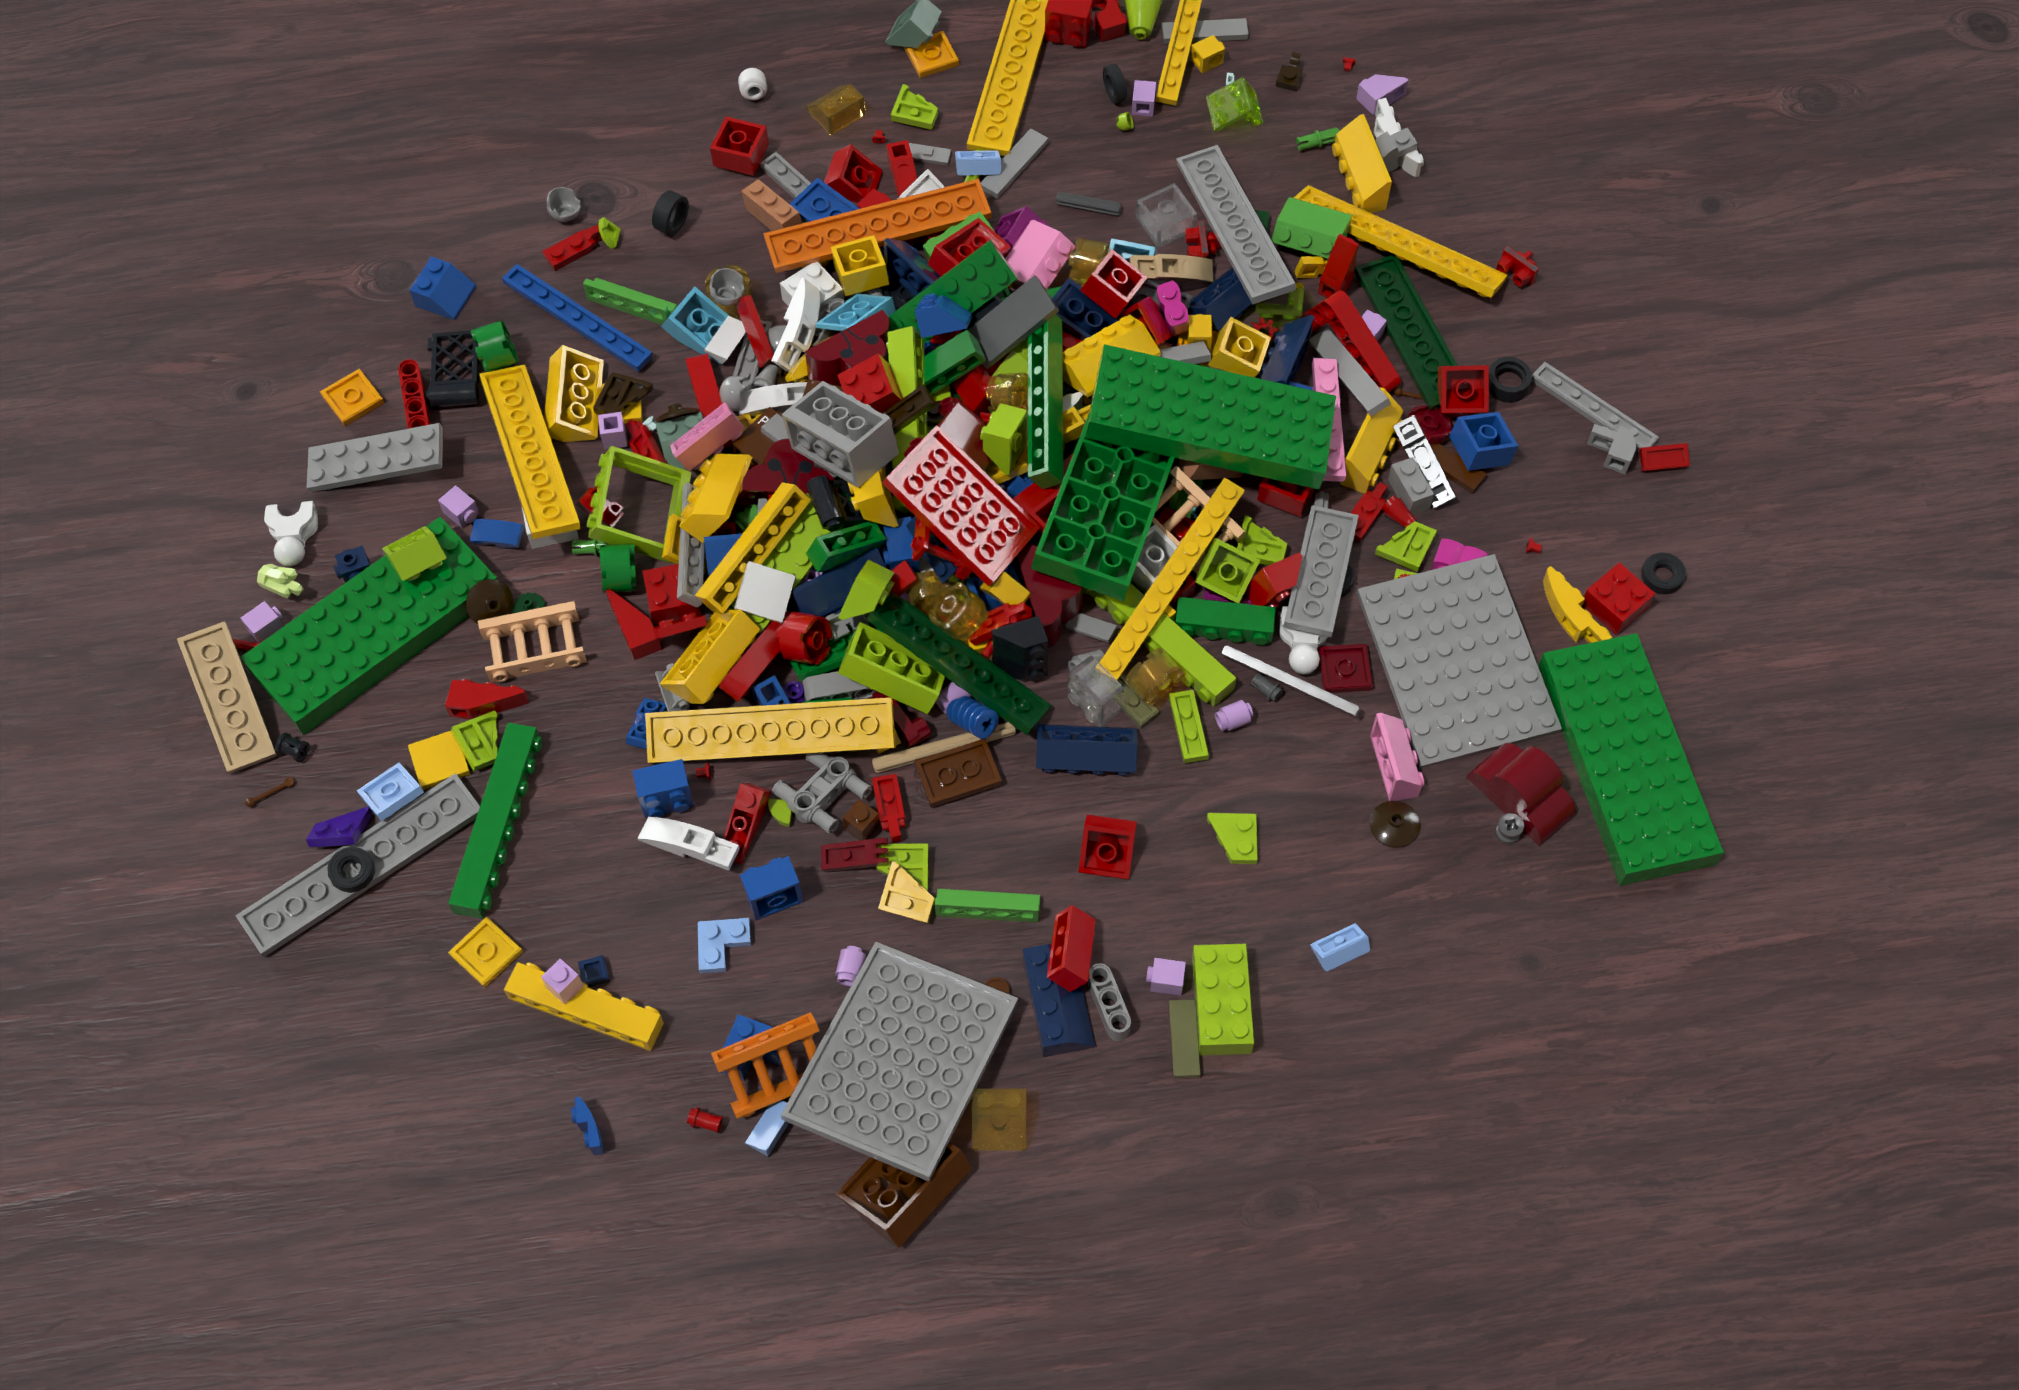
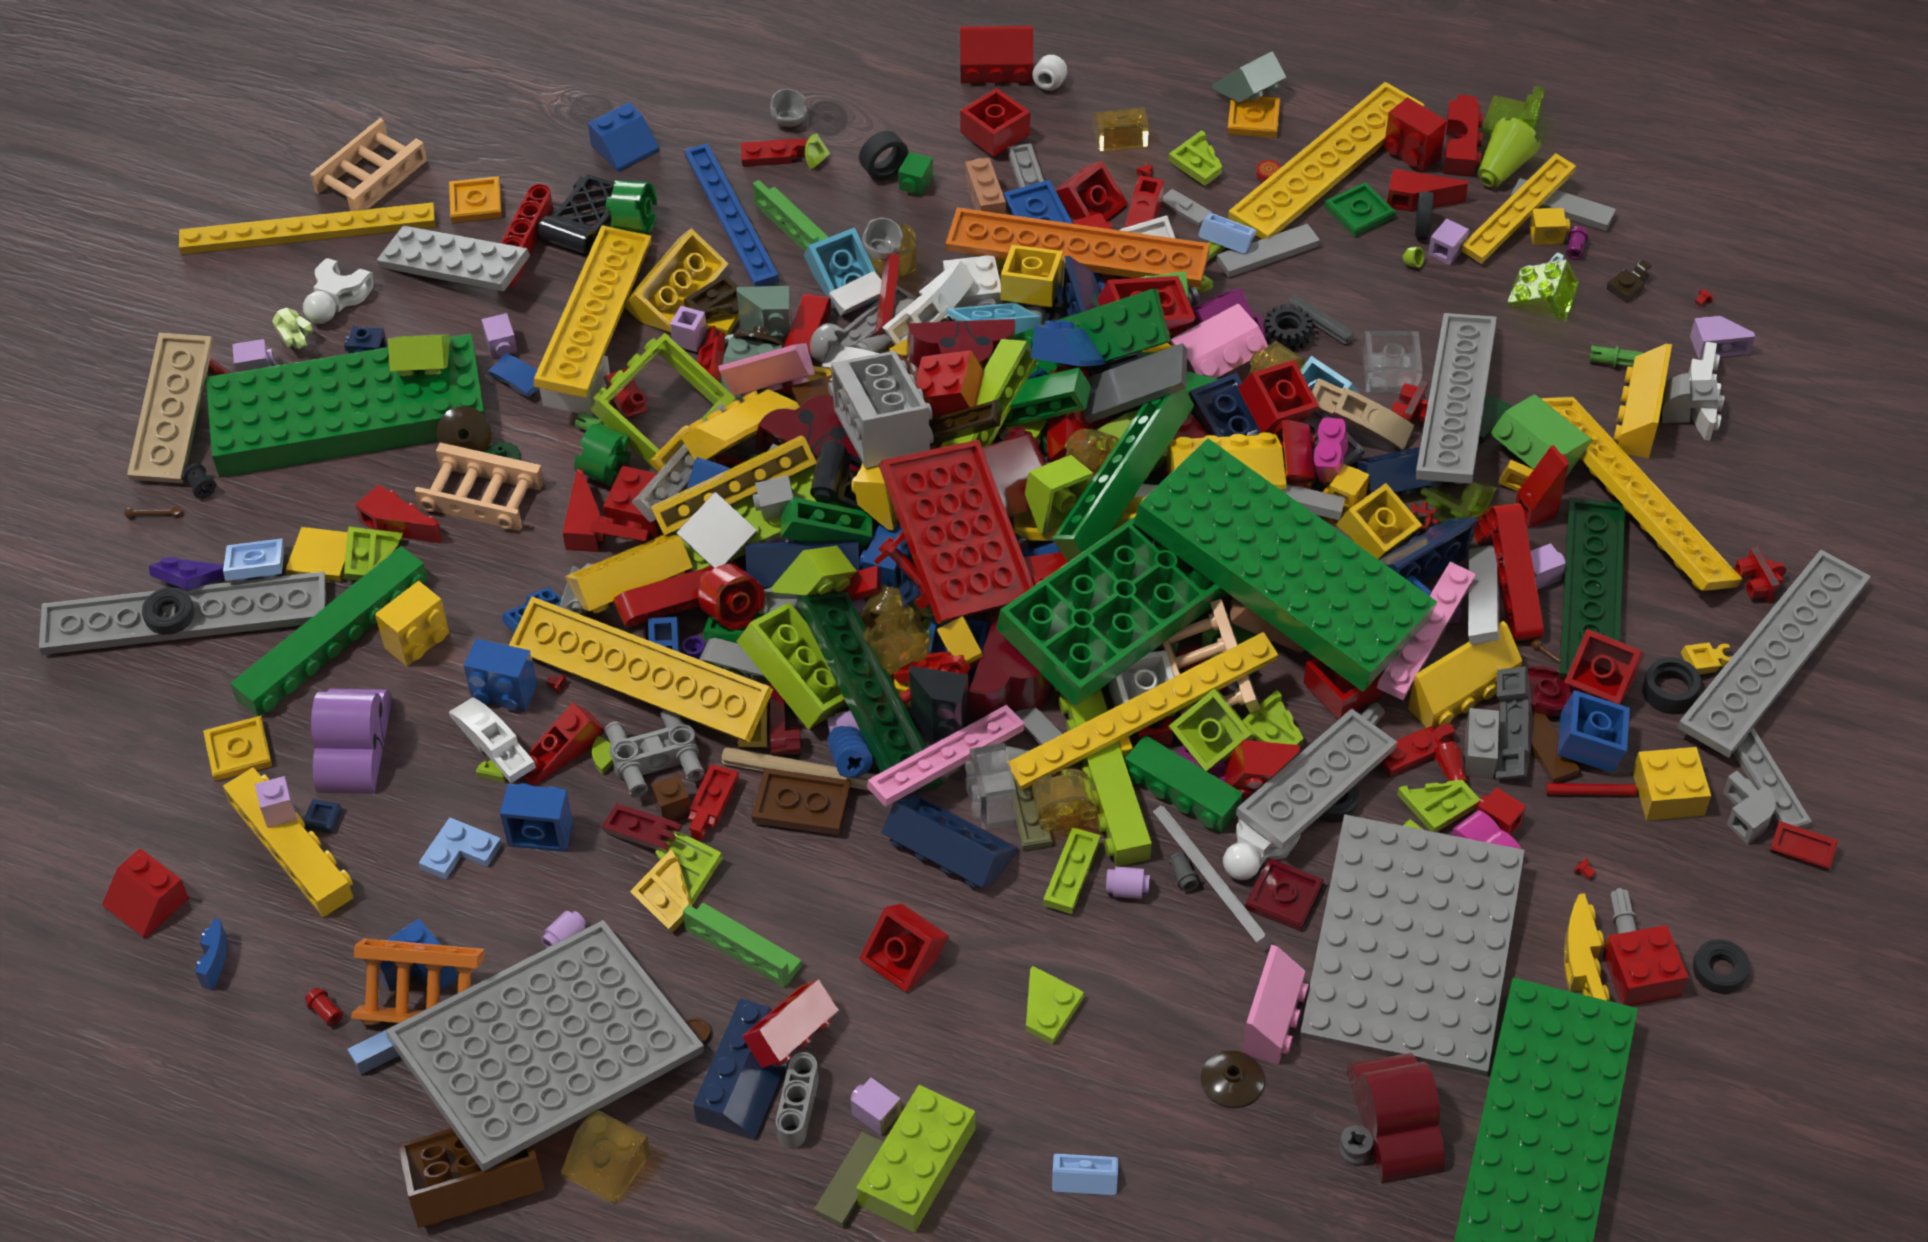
camera: 30 degrees right, 10 degrees down
(222, 487) = (305, 228): none -> yellow plate
(258, 421) = (376, 184): none -> light nougat fence
(497, 1108) = (144, 893): none -> red slope
(563, 781) = (412, 623): none -> yellow brick
(576, 899) = (349, 738): none -> medium lavender brick
(668, 387) = (766, 308): none -> sand green slope
(702, 868) = (489, 771): none -> lime tile
(703, 87) = (996, 54): none -> red slope
(703, 217) = (915, 173): none -> green brick
(794, 543) = (773, 496): none -> light grey brick
(971, 96) = (1266, 169): none -> red tile
(1049, 685) = (944, 756): none -> bright pink plate
(1060, 99) = (1359, 209): none -> green tile
(1071, 211) = (1288, 317): none -> black tyre
(1088, 66) = (1406, 186): none -> red slope
(1233, 53) = (1577, 238): none -> magenta pin
(1455, 529) = (1503, 809): none -> red brick
(1501, 484) = (1590, 789): none -> red bar
(1519, 347) = (1706, 658): none -> yellow plate
(1554, 454) = (1671, 783): none -> yellow brick
(1563, 322) = (1773, 653): none -> light grey plate
(1579, 568) = (1623, 915): none -> light grey axle

